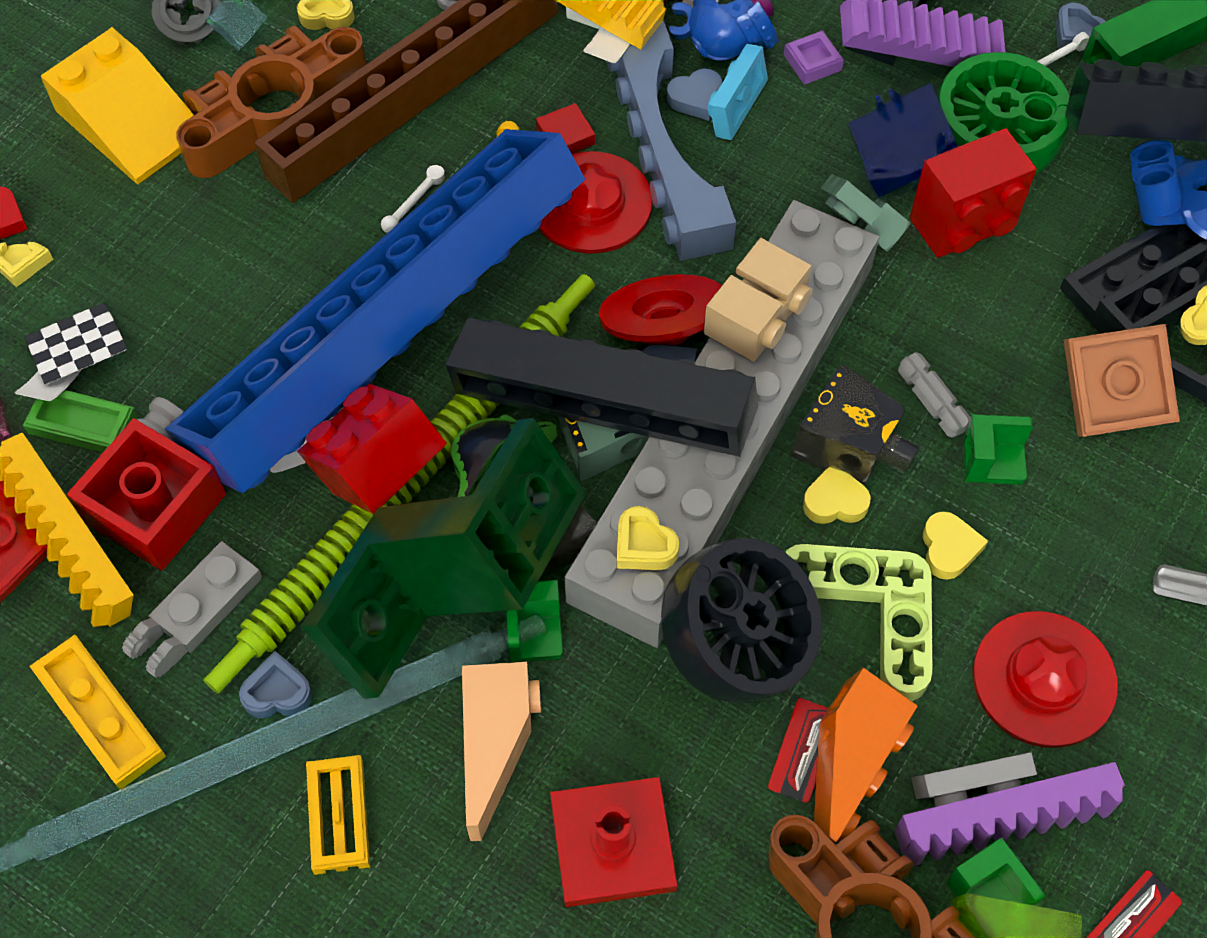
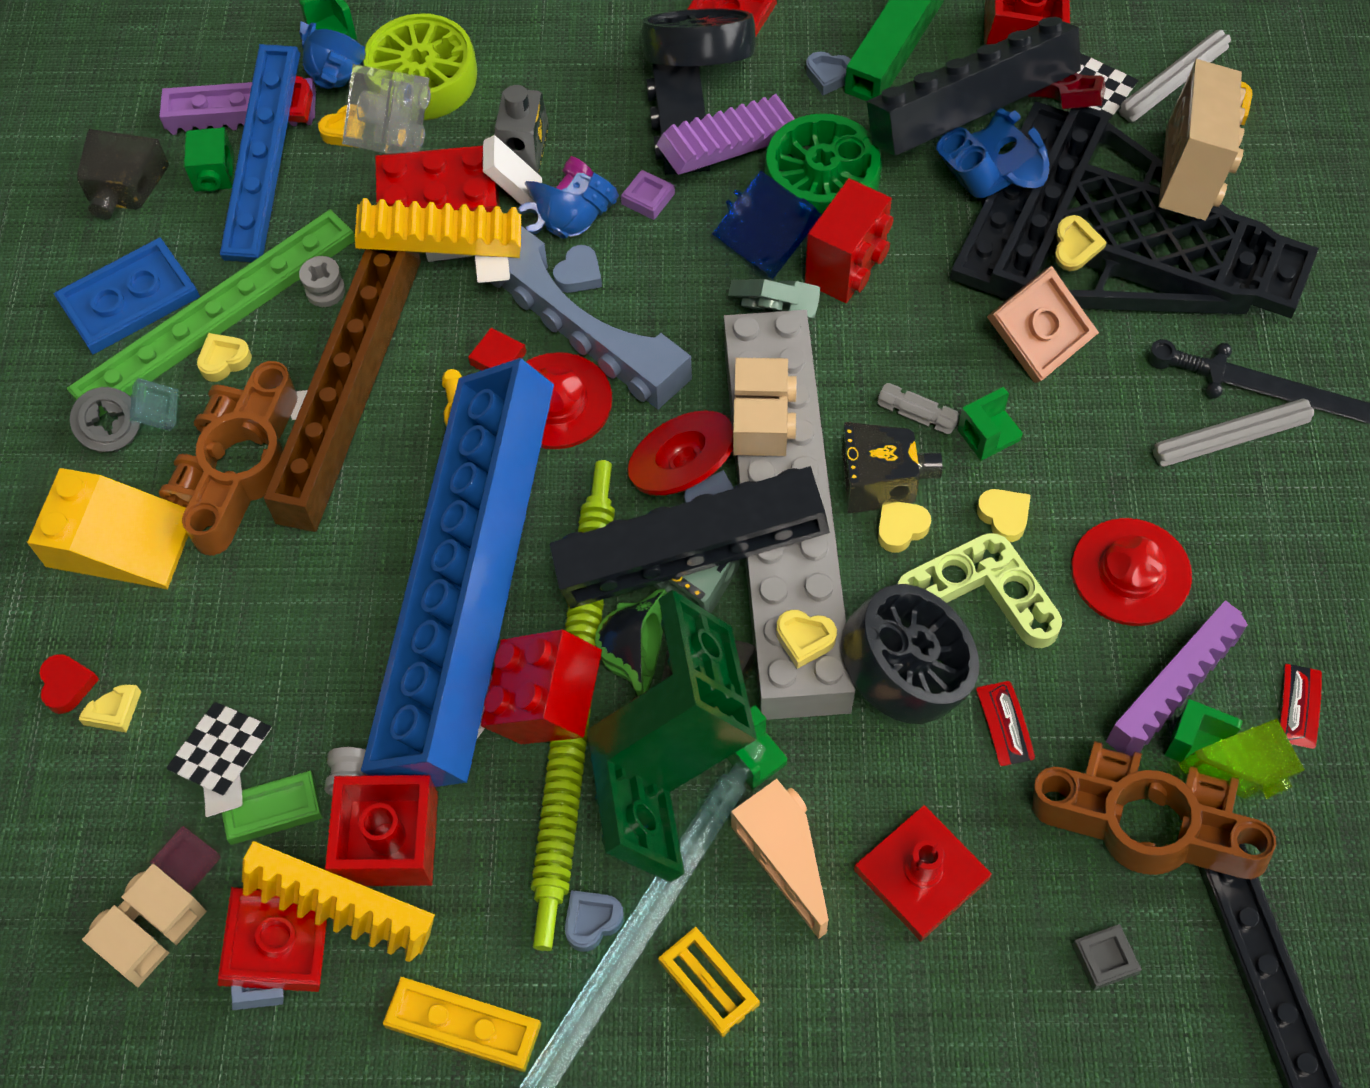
camera: 30 degrees left, 0 degrees up
(193, 608) = (480, 895): light grey hinge -> none
(435, 176) = (416, 447): white hinge -> none
(738, 91) = (612, 243): medium azure plate -> none
(853, 743) = (1043, 695): orange slope -> none
(996, 775) = (1148, 659): light grey plate -> none
(1078, 43) = (839, 83): white hinge -> none

